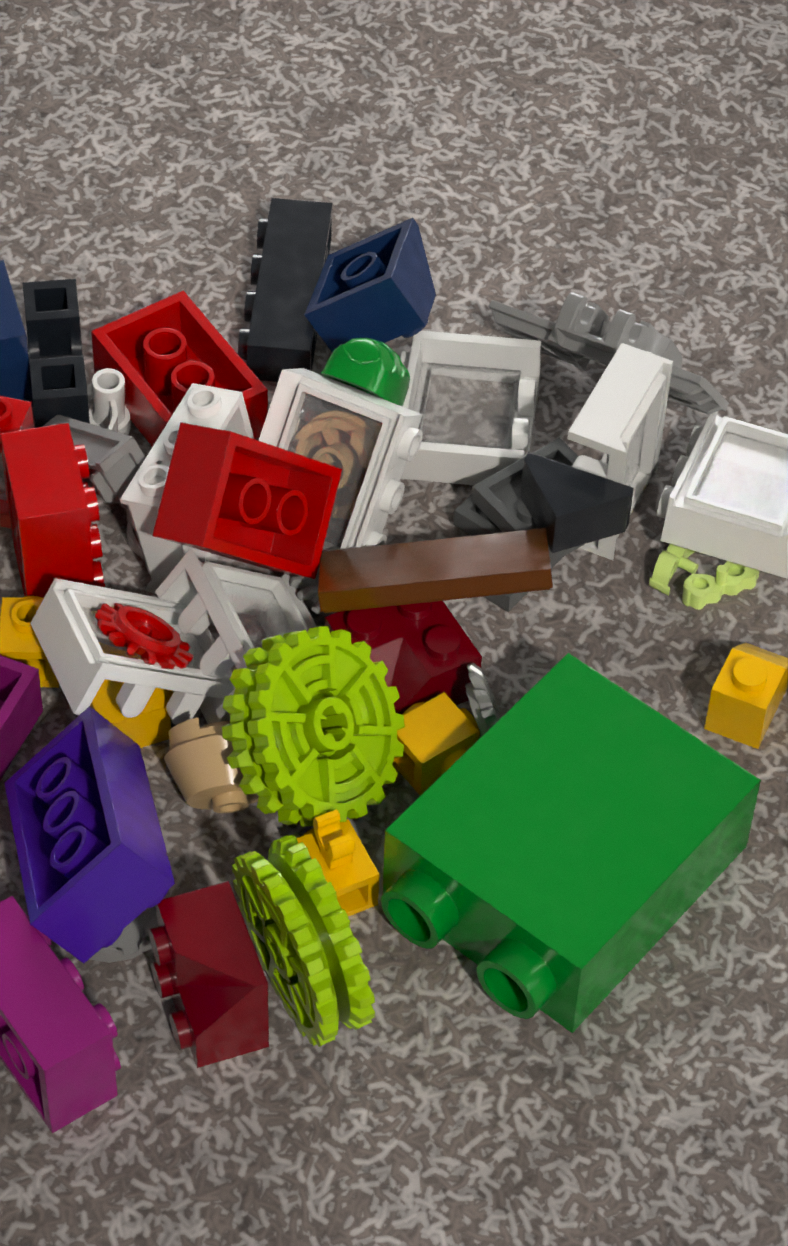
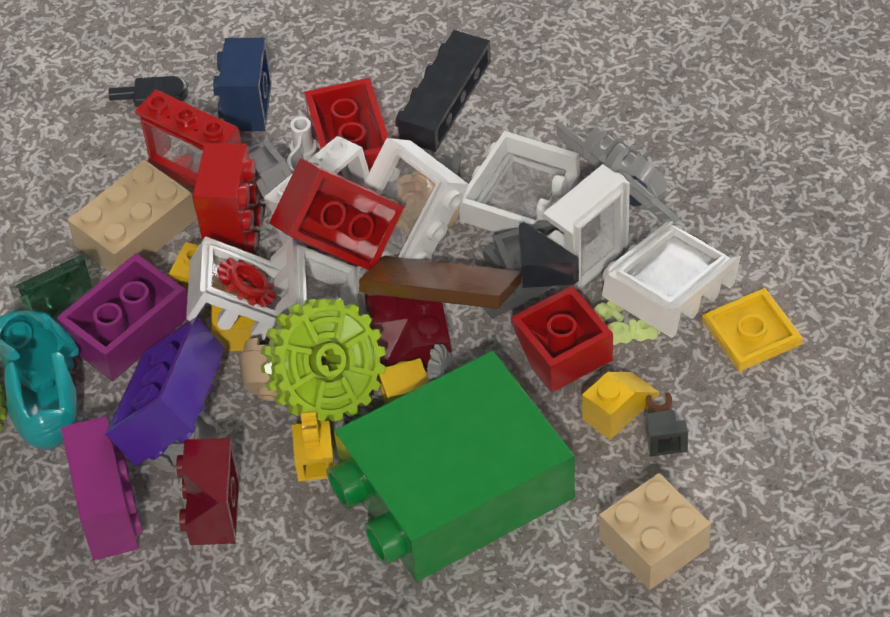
camera: 25 degrees right, 0 degrees up
(55, 350) = (287, 82): black arch -> none
(303, 940) = (262, 484): lime piece -> none
(370, 368) = (454, 151): green piece -> none
(374, 289) = (486, 102): dark blue slope -> none
(639, 614) = (563, 338): none -> red slope

